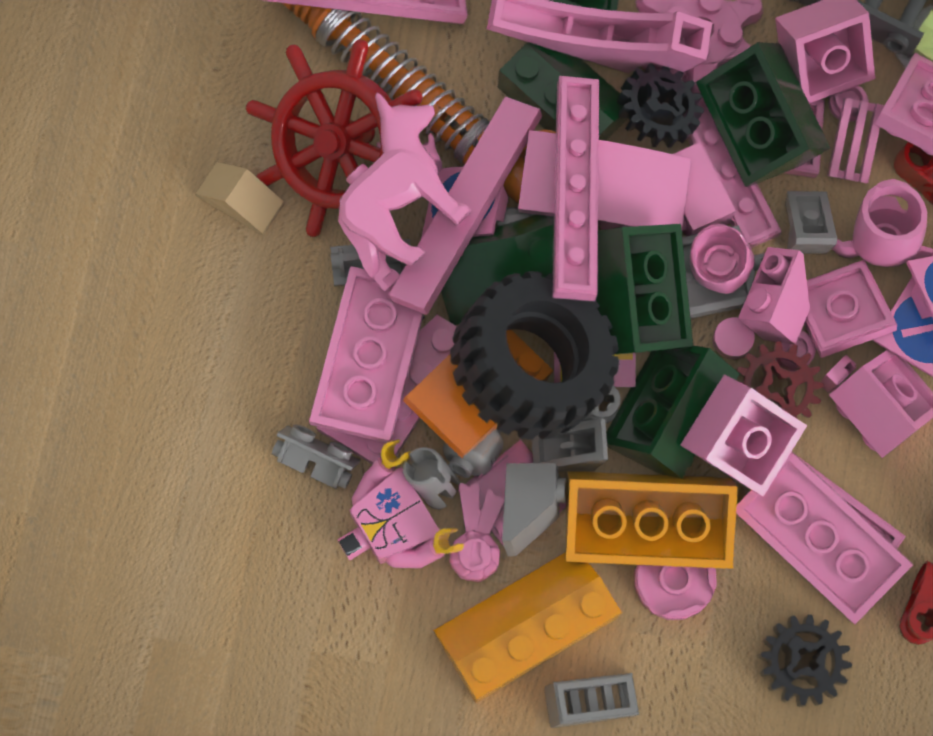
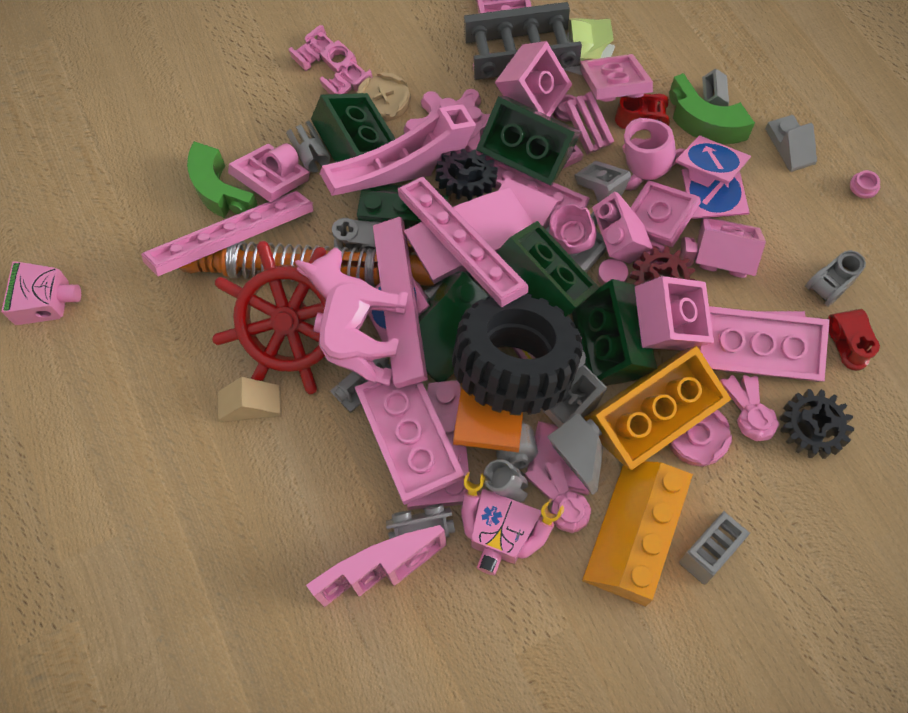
camera: 30 degrees left, 10 degrees down
(256, 468) = (390, 558): none -> bright pink slope
(488, 95) = (359, 234): none -> light grey piece
(747, 610) = (755, 419): none -> bright pink piece

